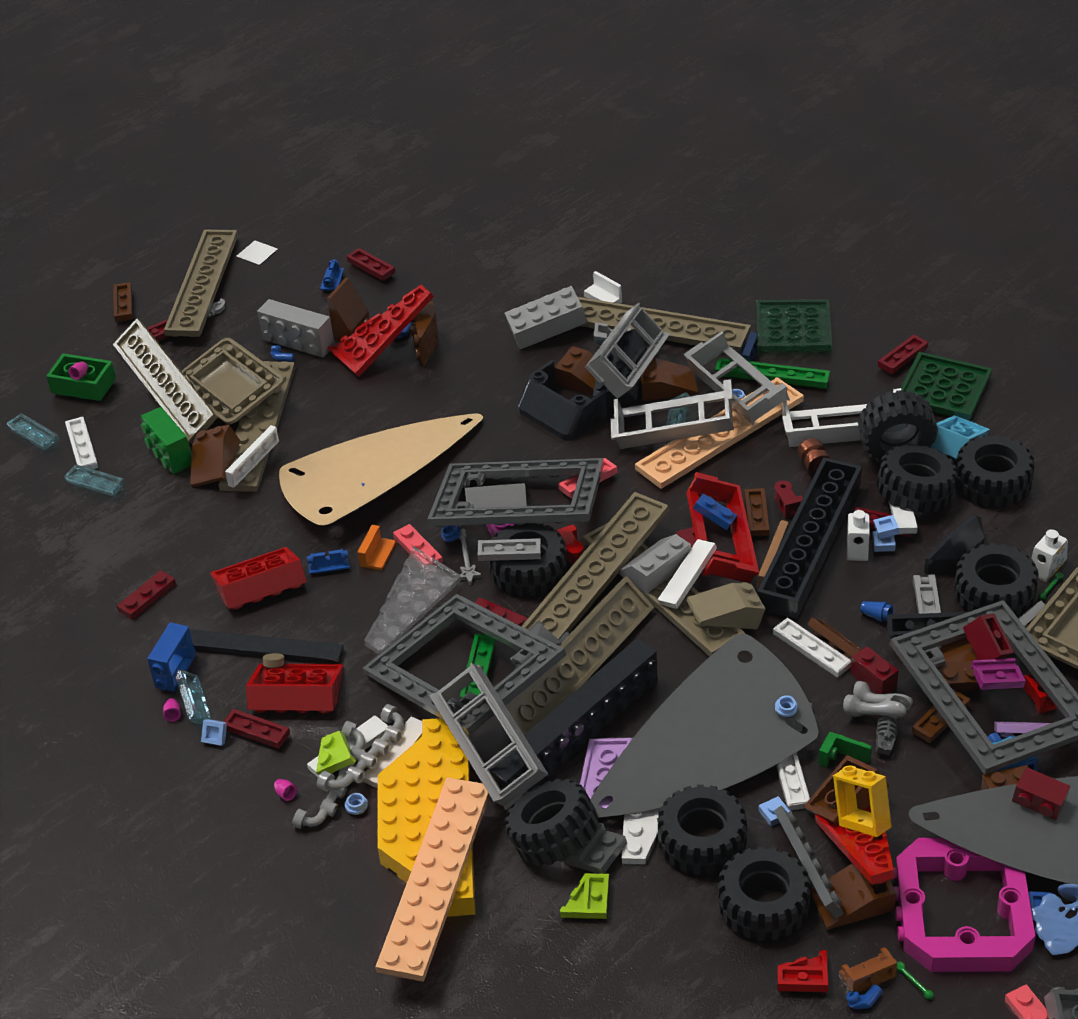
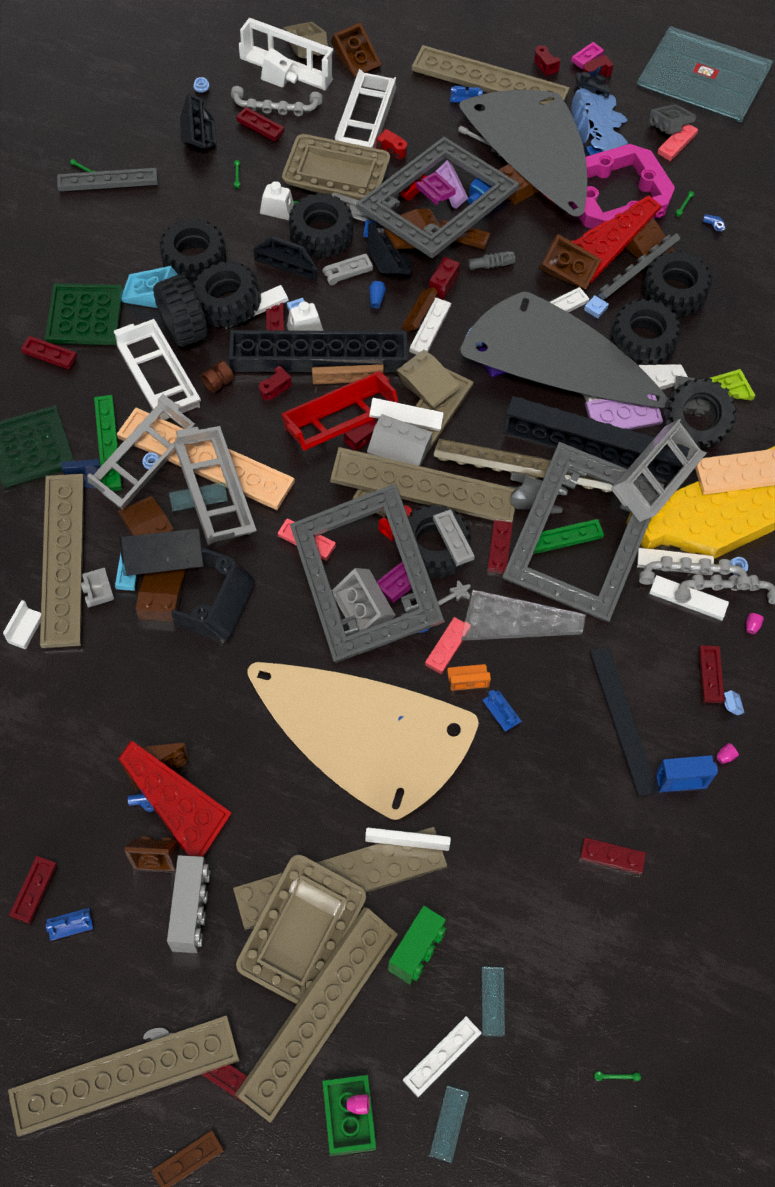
camera: 120 degrees left, 20 degrees up
(193, 696) = (710, 738): clear light blue plate -> none
(212, 454) = (418, 886): reddish brown slope -> none
(257, 252) = (35, 1049): white sticker -> none
(259, 578) = (548, 761): red slope -> none
(273, 660) = (636, 695): dark tan tile -> none
(280, 356) = (225, 912): blue arm -> none
(294, 688) = (653, 664): red slope -> none
(334, 753) = (712, 592): lime wing -> none
(546, 317) = (92, 654): light grey brick -> none
(606, 372) = (145, 547): light grey piece -> none
(714, 511) = (319, 422): blue plate -> none
(757, 512) = (296, 399): reddish brown plate -> none
(786, 701) = (516, 309): light blue plate -> none
(804, 974) = (716, 253): red wing -> none
(840, 744) = (526, 285): green bracket -> none
(848, 814) = (593, 227): yellow window -> none
(868, 703) = (478, 254): light grey piece -> none
(869, 972) = (695, 222): dark orange hinge -> none
(886, 526) = (290, 300): light blue plate -> none
(988, 638) = (408, 197): dark red brick -> none
(1041, 793) = (526, 152): dark red brick -> none

